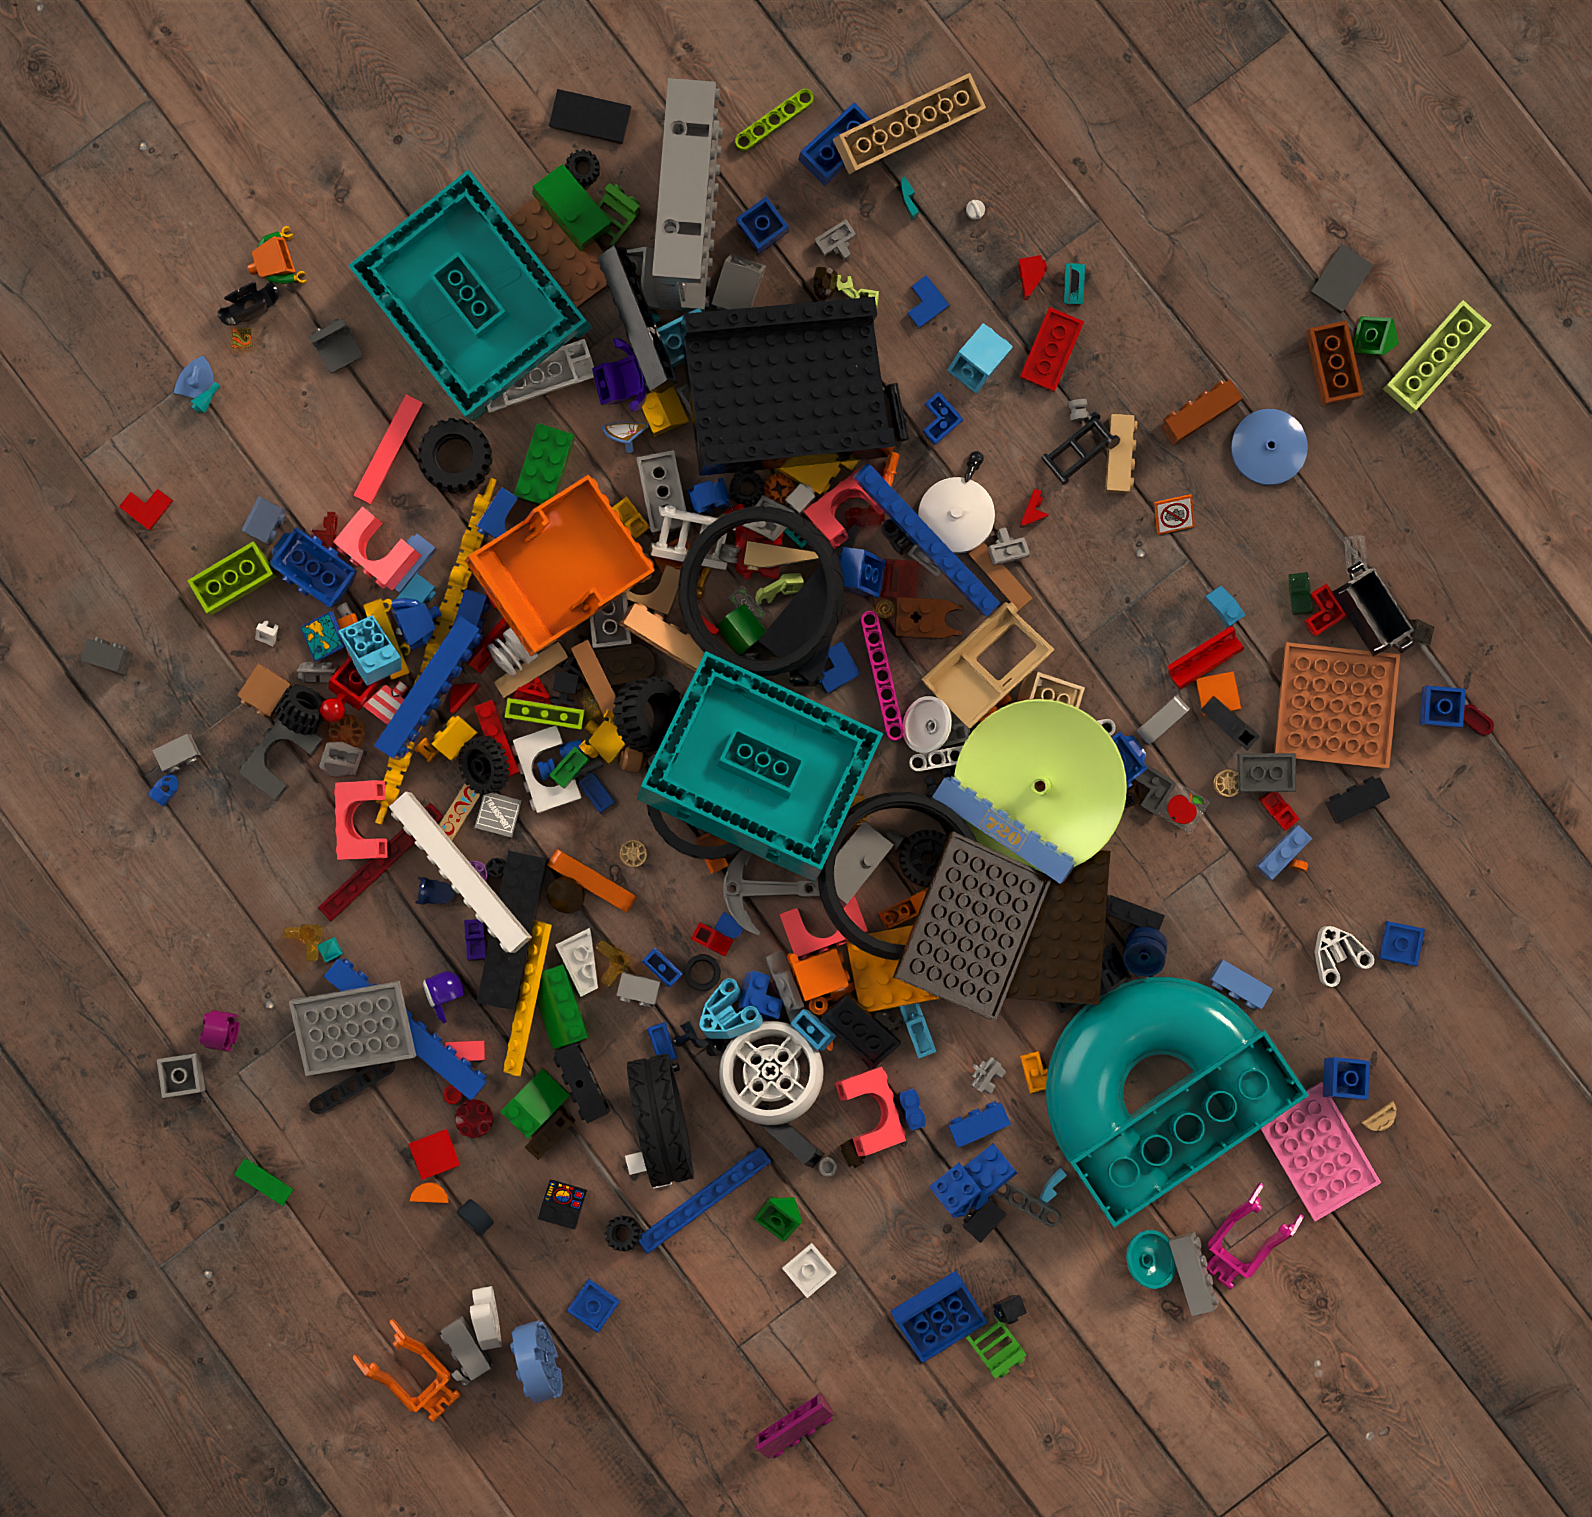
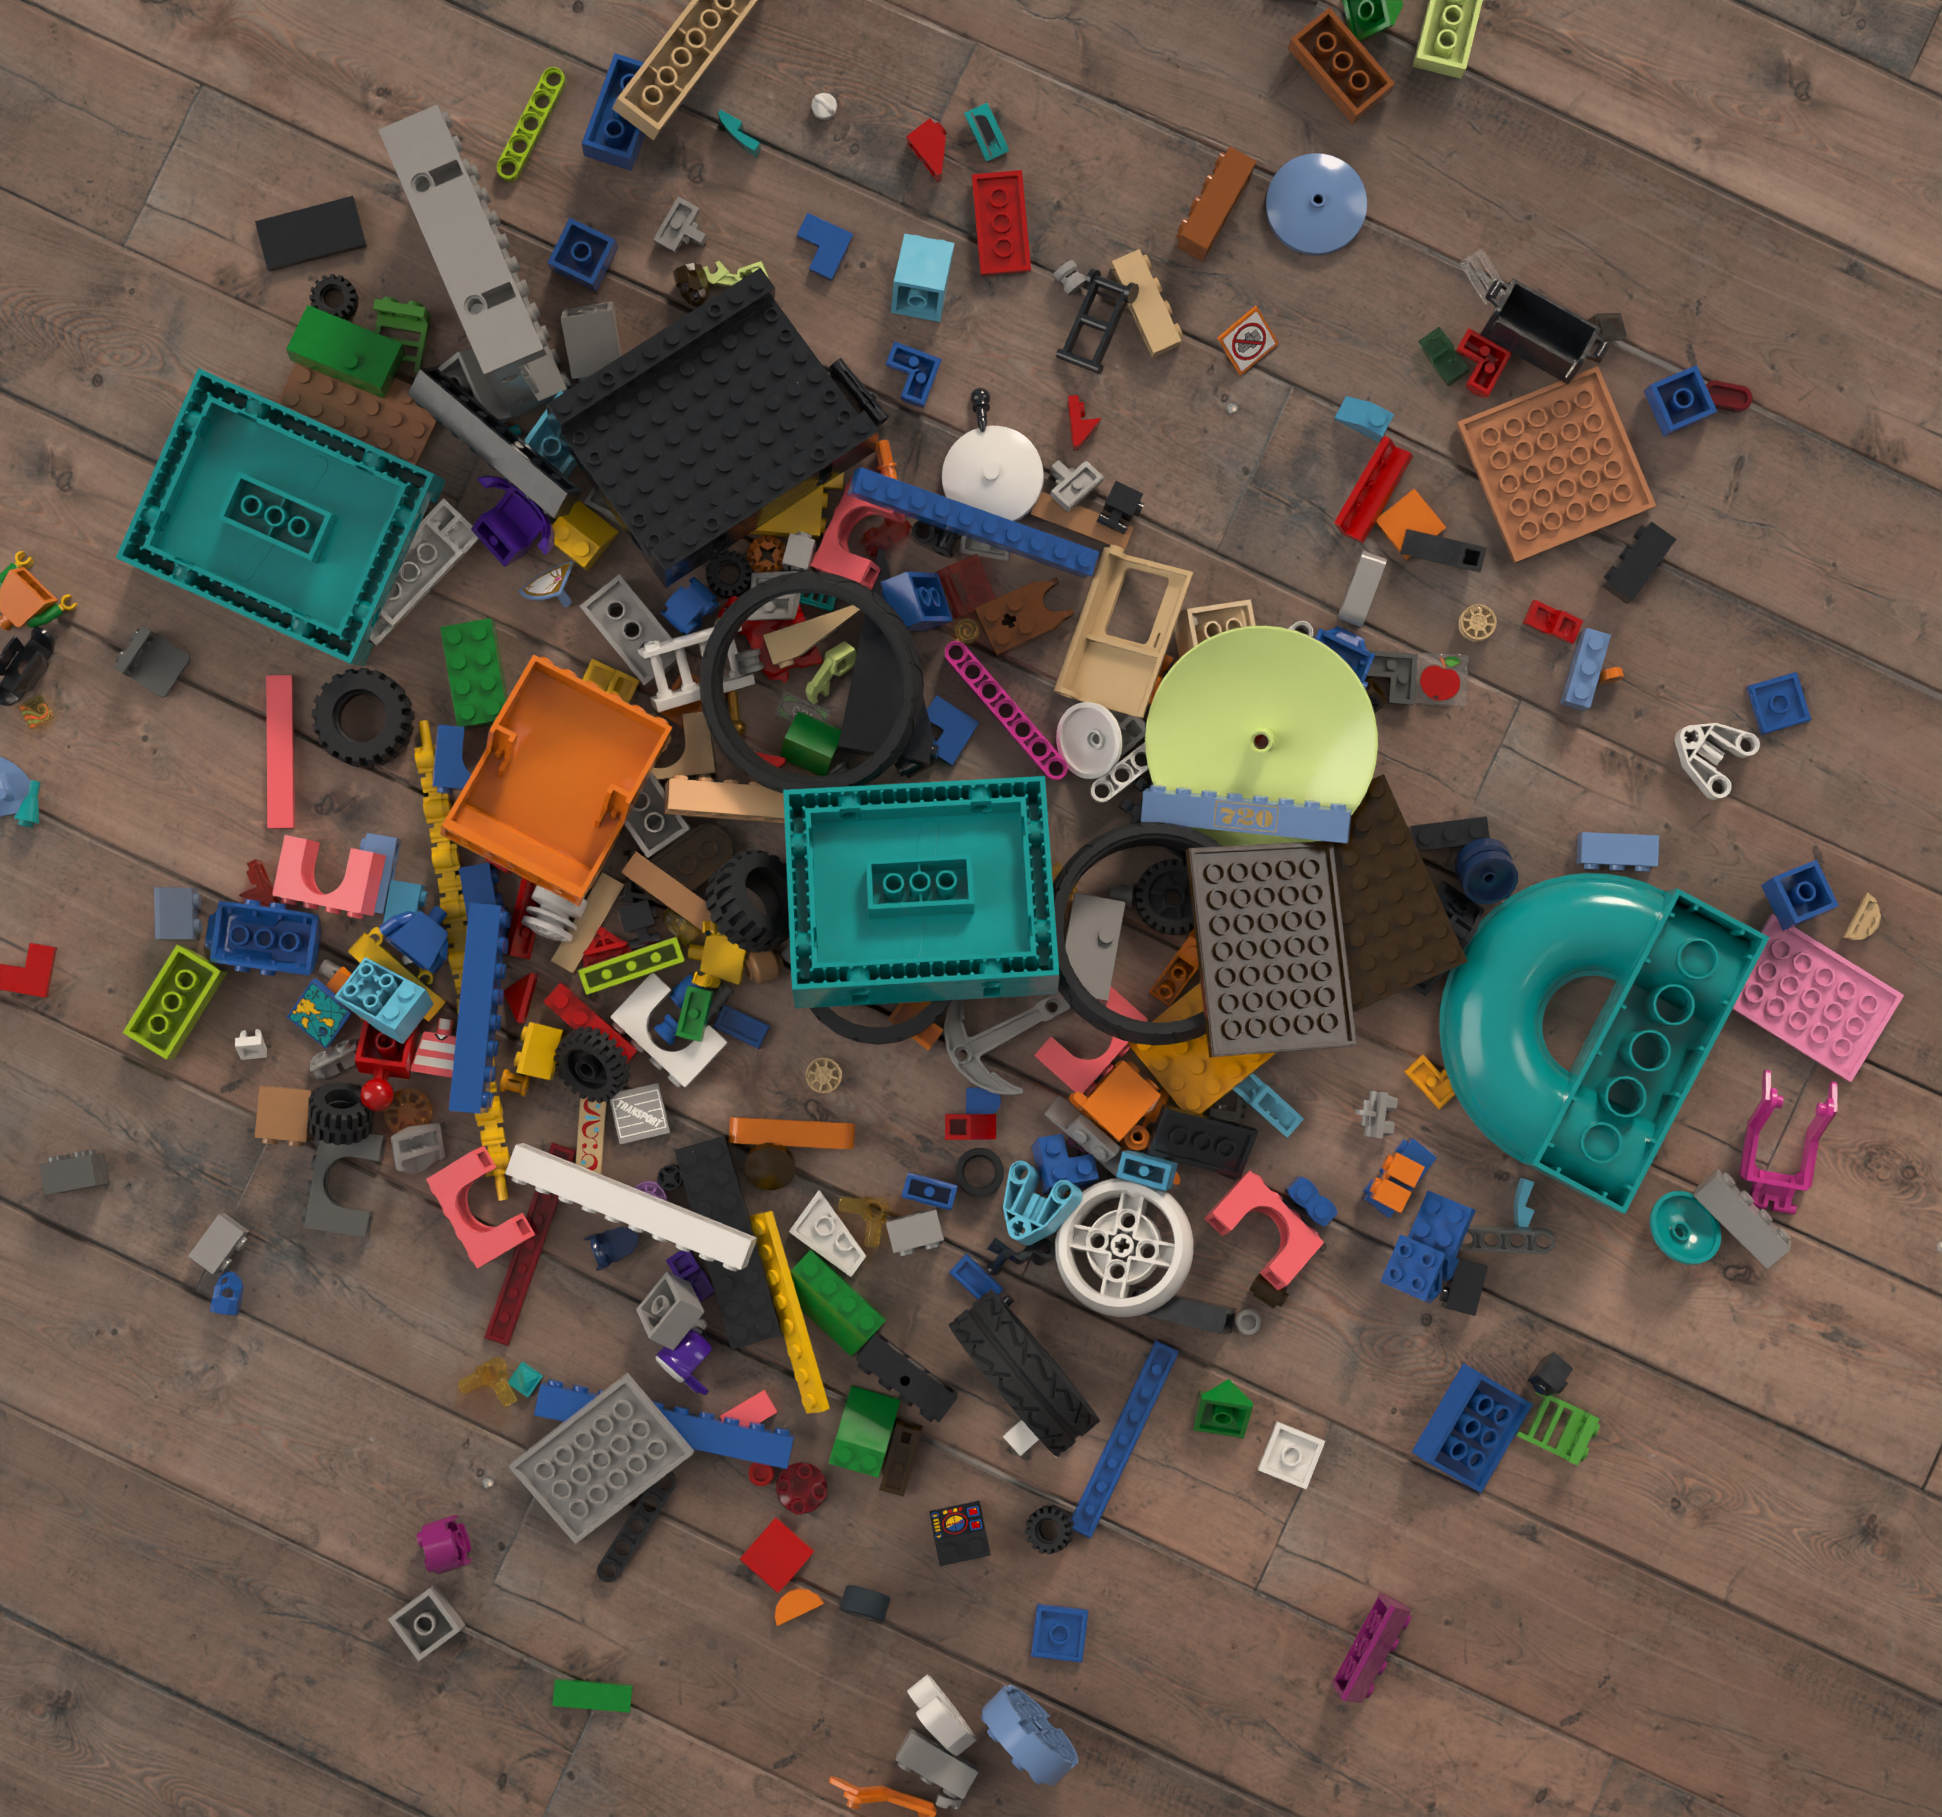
camera: 30 degrees left, 0 degrees up
(450, 956) = (671, 1311): none -> light grey brick
(983, 1120) = (1401, 1169): none -> orange piece
(1032, 578) = (1121, 503): none -> black brick
(1266, 772) = (1516, 586): dark grey tile -> none

